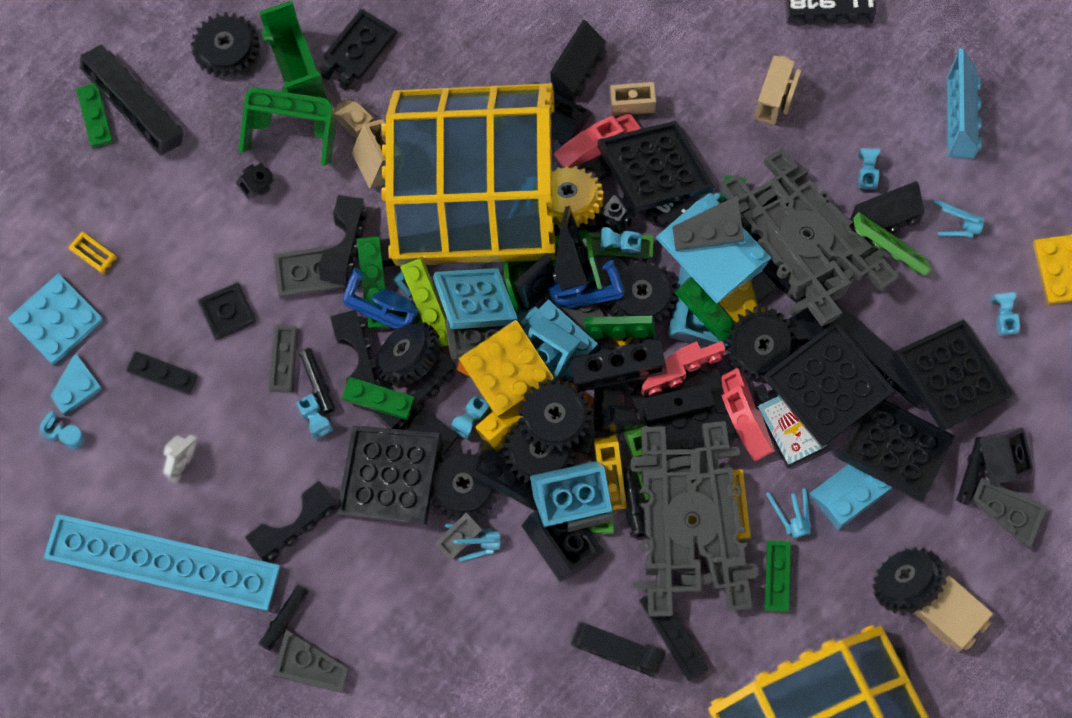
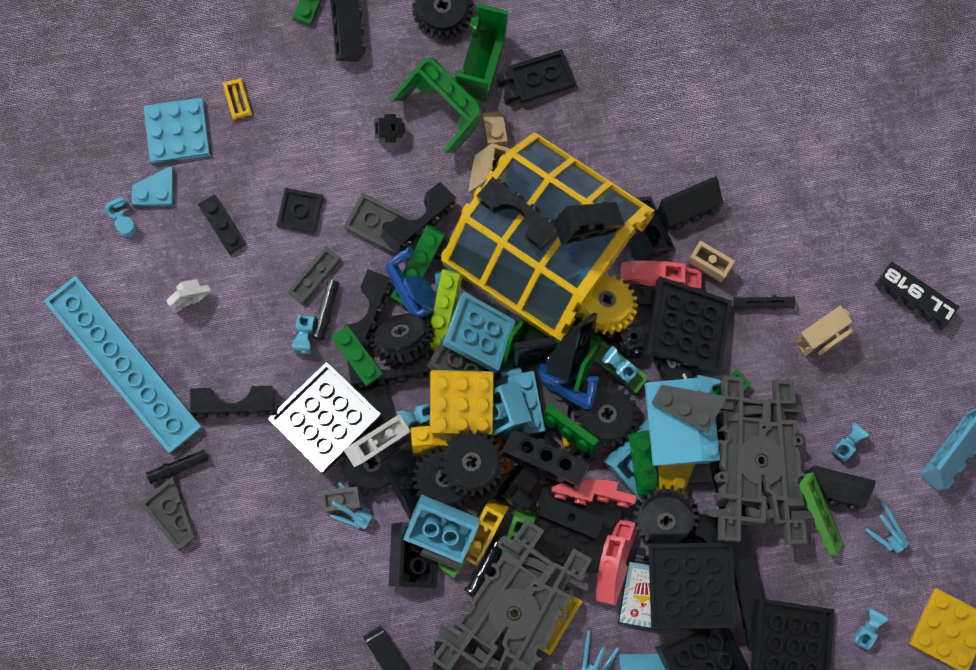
camera: 30 degrees right, 5 degrees up
(408, 160) = (497, 197): none -> black arch
(453, 459) = (376, 440): none -> white slope
(505, 123) = (588, 222): none -> black wedge
(711, 98) = (764, 302): none -> black pin

